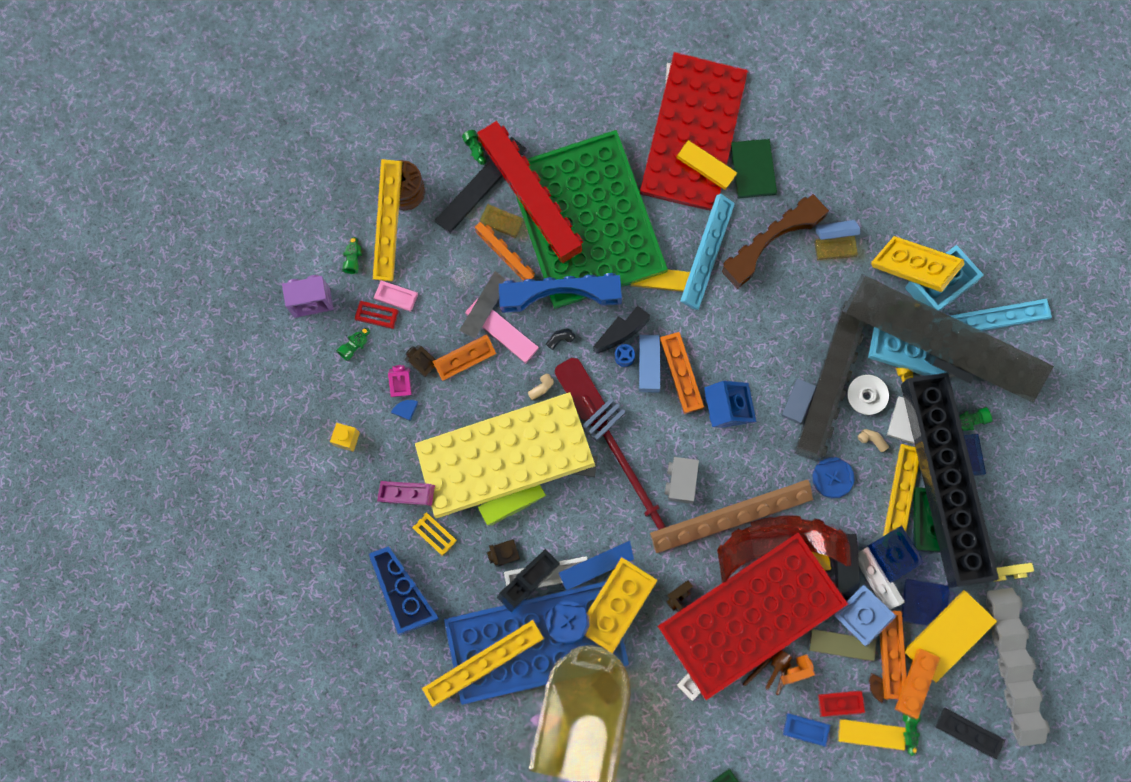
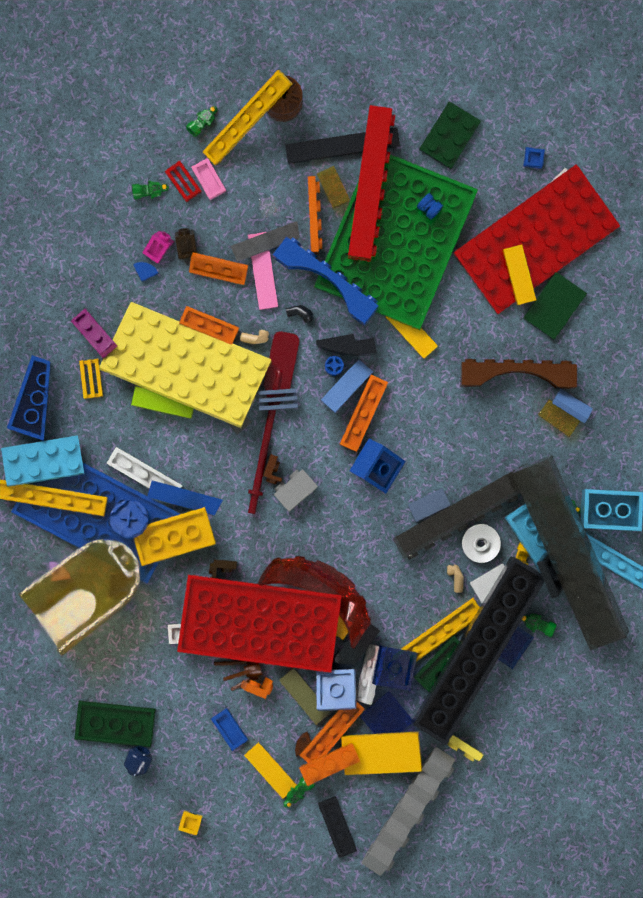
camera: 35 degrees right, 10 degrees up
(307, 296) = (142, 126): medium lavender brick -> none
(344, 437) = (85, 255): yellow brick -> none
(452, 636) = (42, 461): none -> medium azure plate
(470, 138) = (364, 102): green piece -> none
(495, 408) = (209, 325): none -> orange plate
(503, 553) = (127, 433): dark brown bracket -> none
(528, 580) = (126, 467): black slope -> none
(557, 110) = (450, 135): none -> dark green plate
(586, 169) = (429, 206): none -> blue wheel
(637, 75) = (533, 158): none -> blue tile
(646, 477) = (272, 466): none -> reddish brown bracket
(707, 252) = (462, 340): medium azure tile -> none
(731, 516) = (307, 544): medium nougat plate -> none
(833, 477) = (403, 579): blue tile -> none
(841, 703) = (268, 732): red plate -> none
(918, 263) = (602, 481): yellow tile -> none

